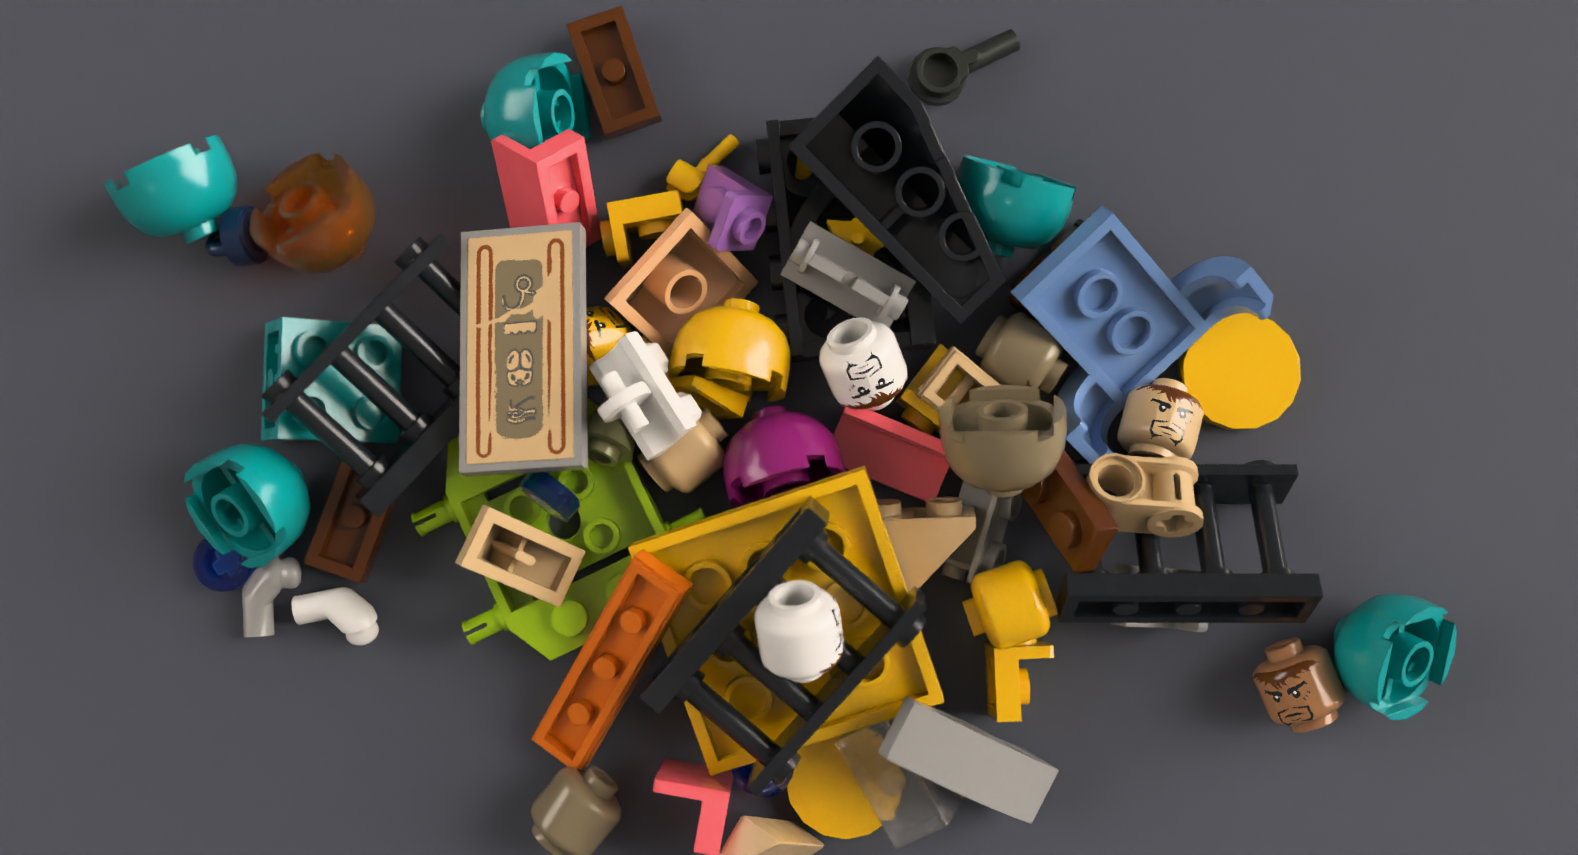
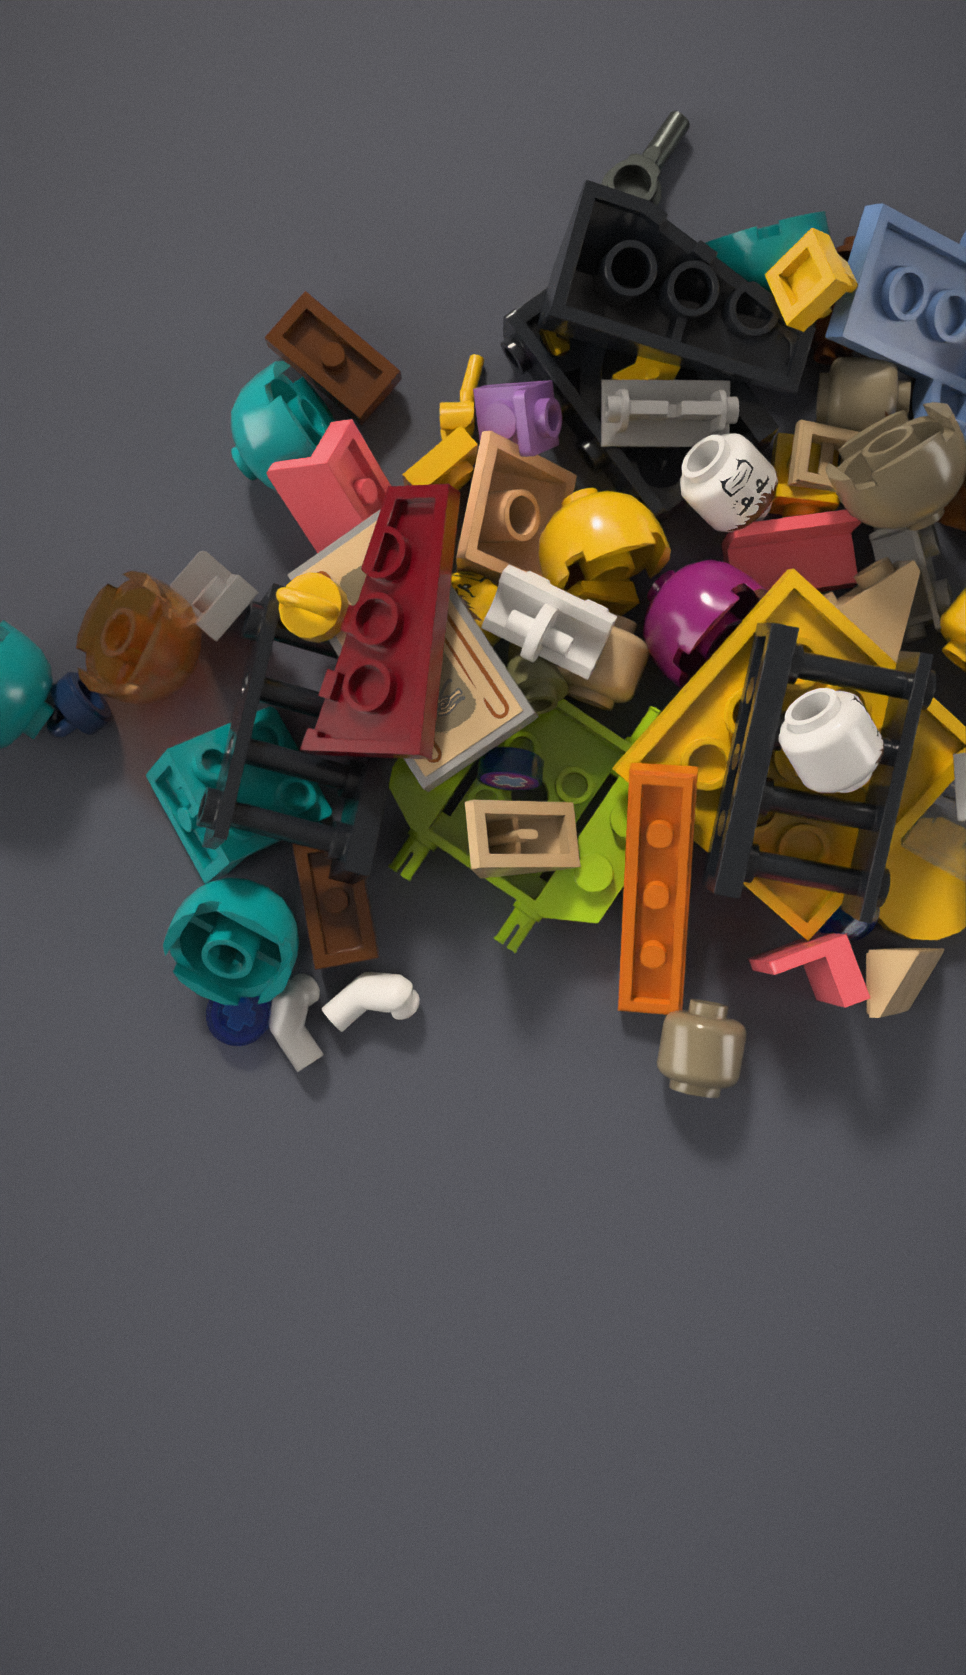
camera: 25 degrees left, 0 degrees up
(401, 210) = (213, 593): none -> light grey bracket
(460, 272) = (312, 607): none -> yellow tile
(493, 353) = (392, 657): none -> dark red wing
(1018, 241) = (810, 280): none -> yellow tile

